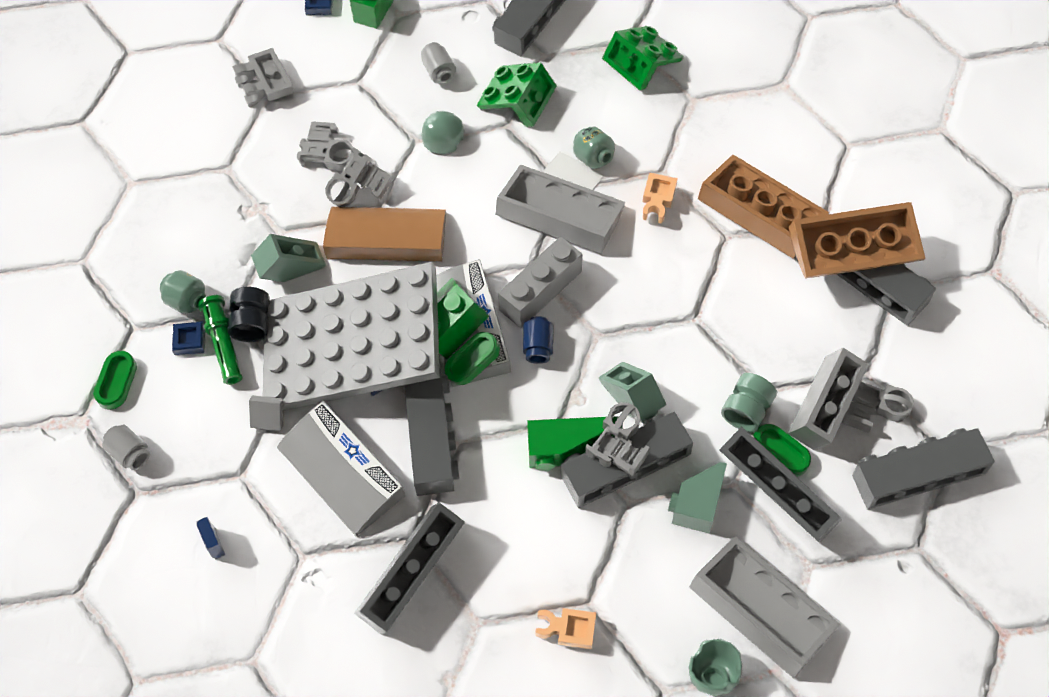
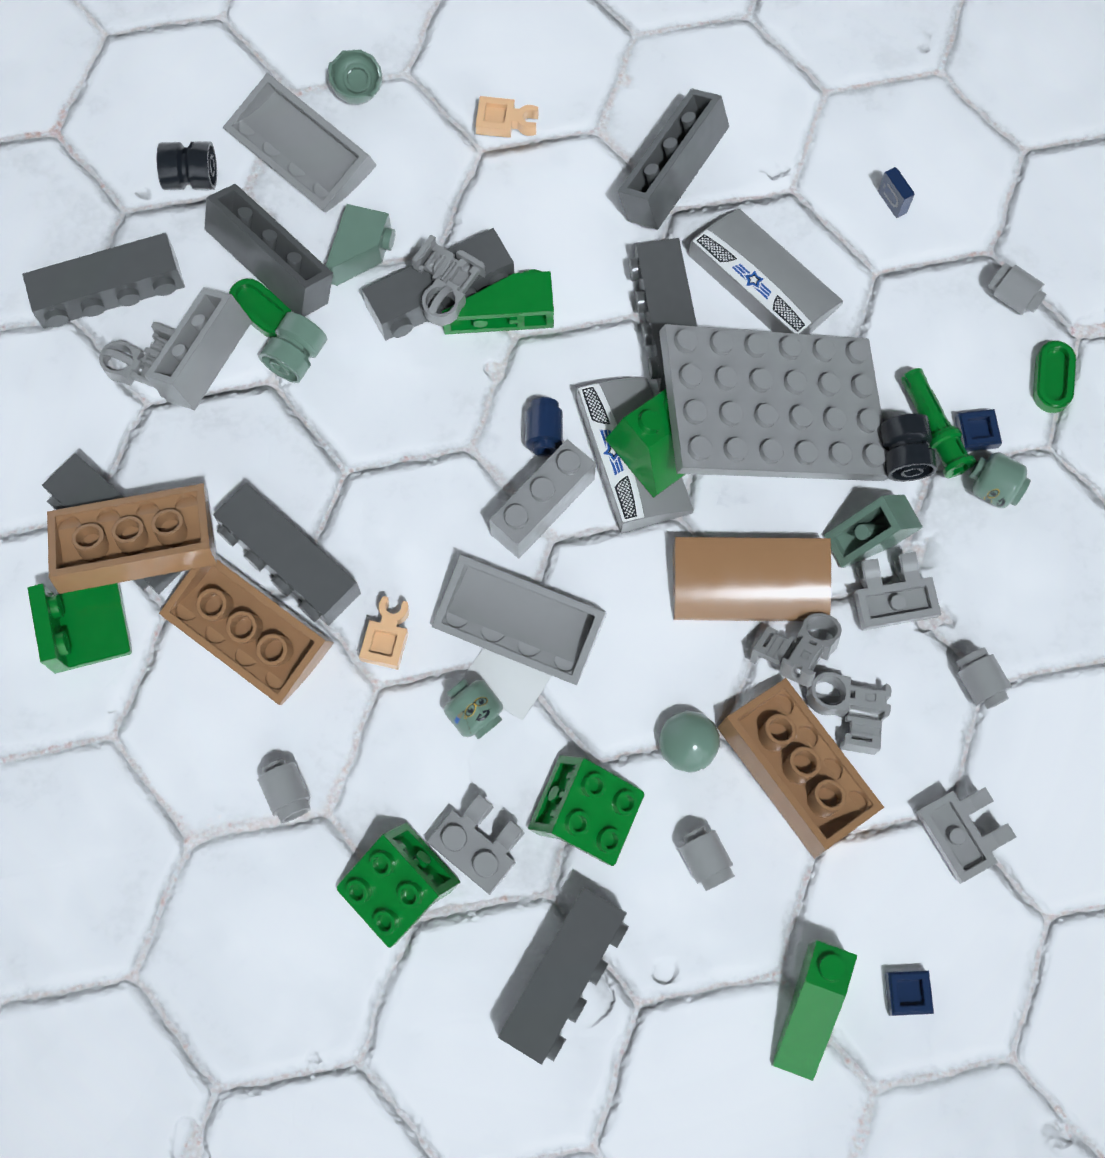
camera: 175 degrees right, 10 degrees up
(229, 162) = (984, 678): none -> light grey brick
(266, 413) = (862, 330): light grey tile -> none
(279, 212) = (897, 602): none -> light grey plate
(368, 115) = (800, 767): none -> medium nougat slope
(472, 358) = (623, 390): green tile -> none
(594, 73) = (472, 852): none -> light grey plate
(635, 387) = (430, 364): sand green slope -> none
(723, 102) = (284, 790): none -> light grey brick
(738, 248) = (287, 554): none -> dark grey brick
(878, 570) = (187, 165): none -> black wheel
(899, 188) = (79, 626): none -> green bracket

